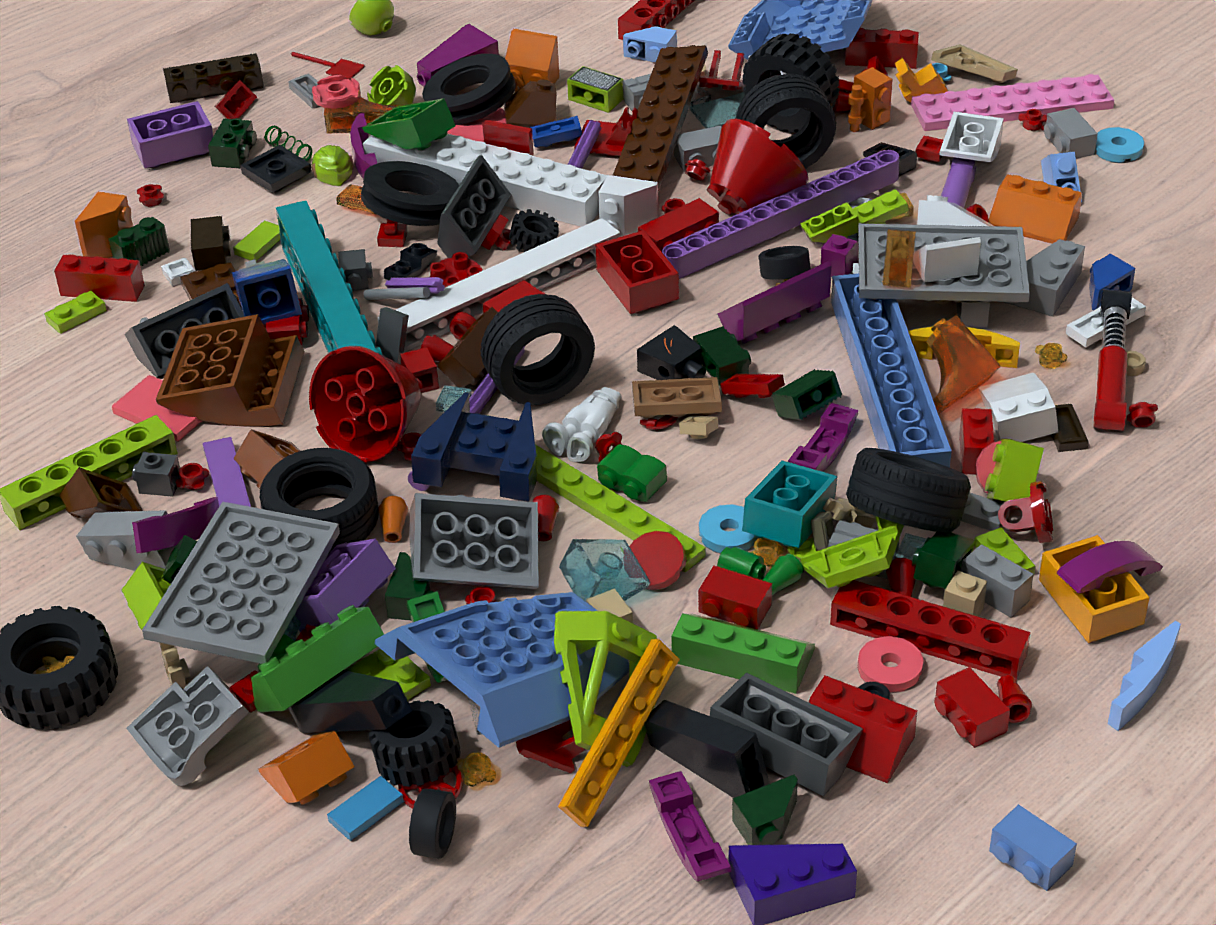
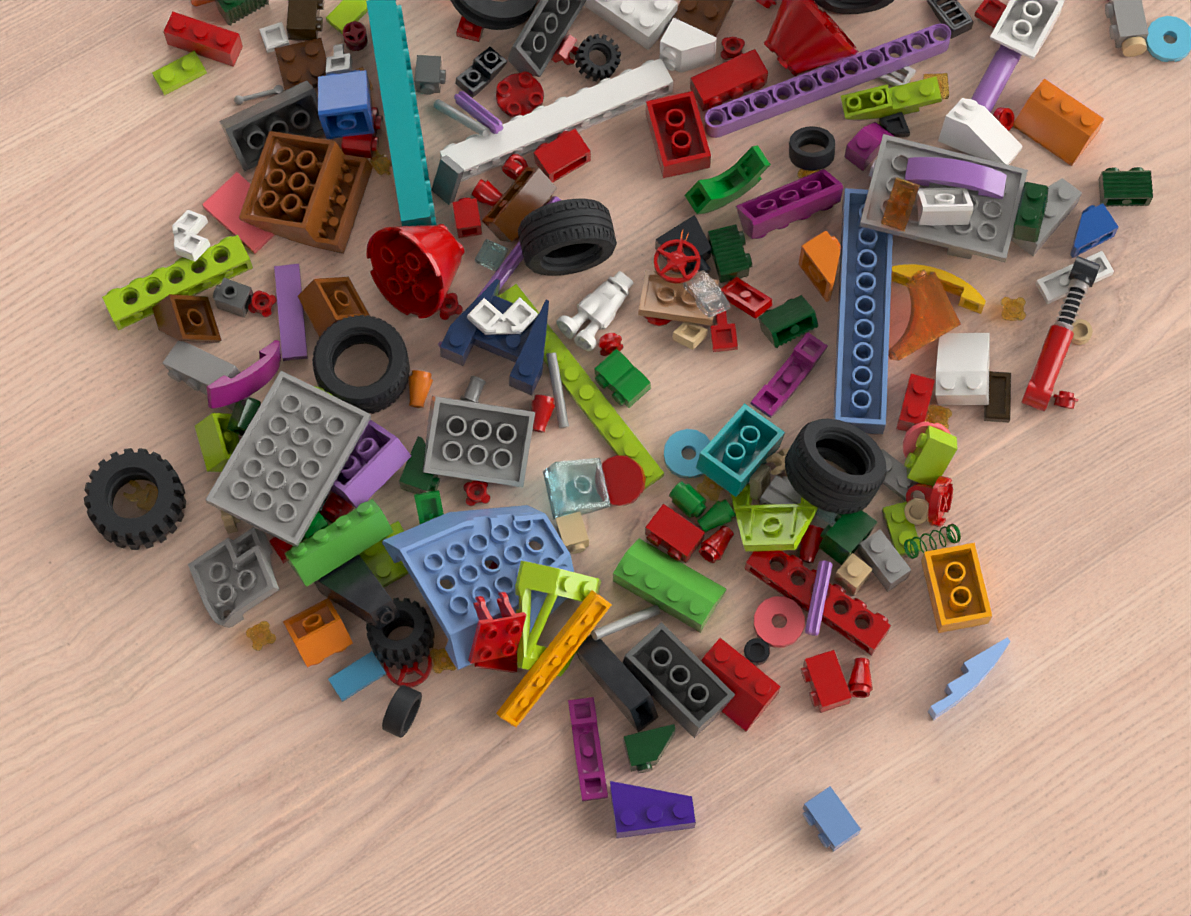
camera: 10 degrees right, 30 degrees up
(101, 426) = (185, 233): none -> white tile
(230, 785) = (262, 628): none -> clear yellow plate
(267, 251) = (355, 30): none -> dark red wheel
(313, 343) = (381, 163): none -> clear yellow plate
(465, 425) = (492, 321): none -> white tile
(541, 692) = (498, 636): none -> red plate
(558, 493) = (557, 390): none -> light grey bar
(666, 360) = (677, 261): none -> red wheel
(699, 687) = (625, 622): none -> light grey bar
(702, 306) = (723, 189): none -> green arch
(708, 380) = (707, 294): none -> clear slope
(736, 421) = (723, 334): none -> red plate
(787, 603) = (715, 546): none -> red cone
(826, 339) = (820, 262): none -> orange slope
(932, 617) = (818, 598): none -> medium lavender axle
(957, 229) = (956, 174): none -> medium lavender slope
(1018, 526) = (917, 511): none -> tan tile
(1030, 551) = (949, 536): none -> green piece
(1040, 256) = (1030, 212): none -> dark green brick
(1061, 170) = (1097, 82): light blue slope -> none
(1086, 151) = (1134, 46): none -> tan tile
(1107, 560) = (972, 577): magenta slope -> none
(1130, 244) = (1125, 187): none -> dark green brick

